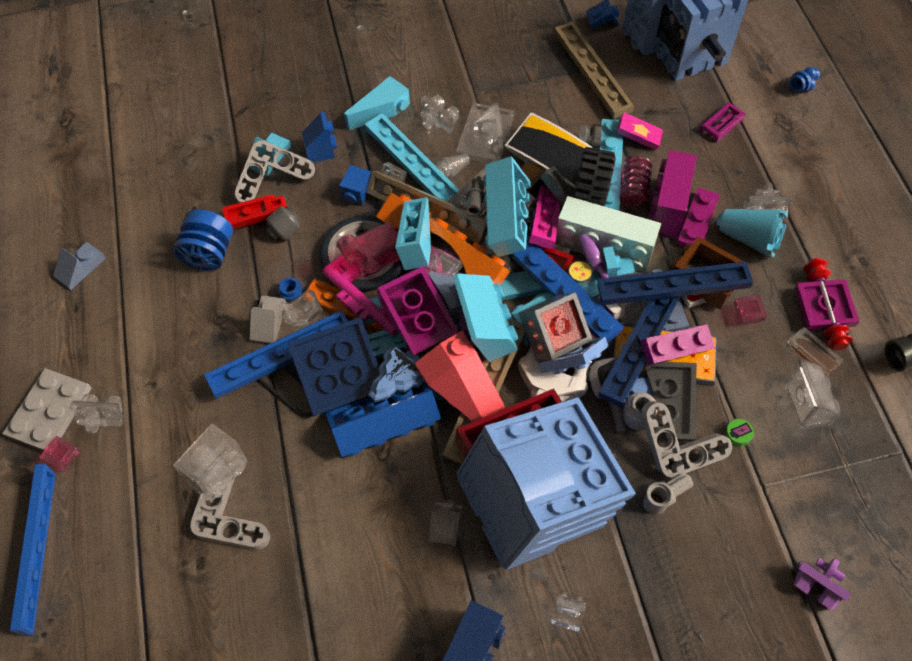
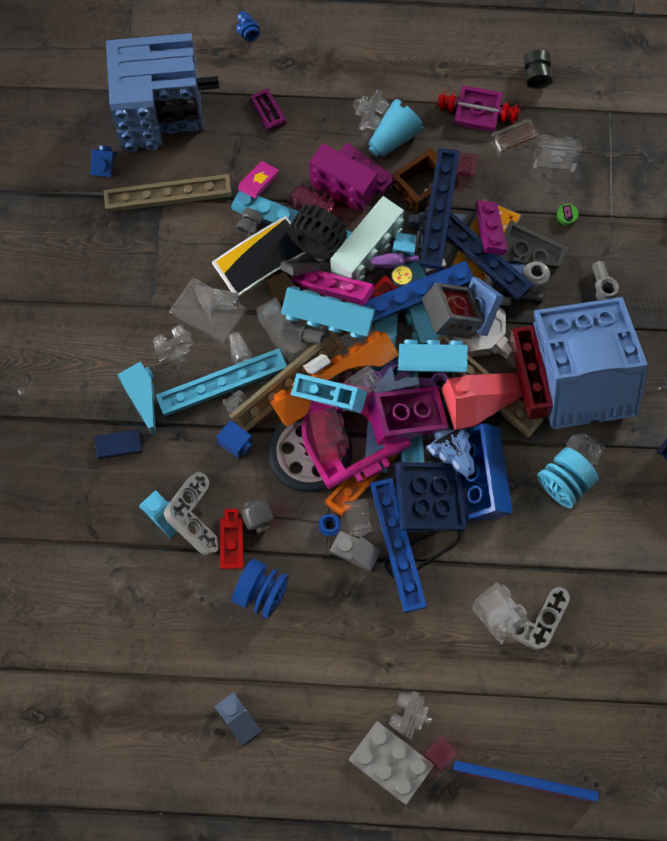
camera: 75 degrees left, 10 degrees up
(317, 139) = (172, 459): blue slope -> none
(328, 102) = (118, 444): none -> dark blue tile
(394, 502) = (568, 477): none -> medium azure wheel
(446, 216) = (316, 364): none -> white tile
(673, 450) = (579, 267): light grey beam -> none

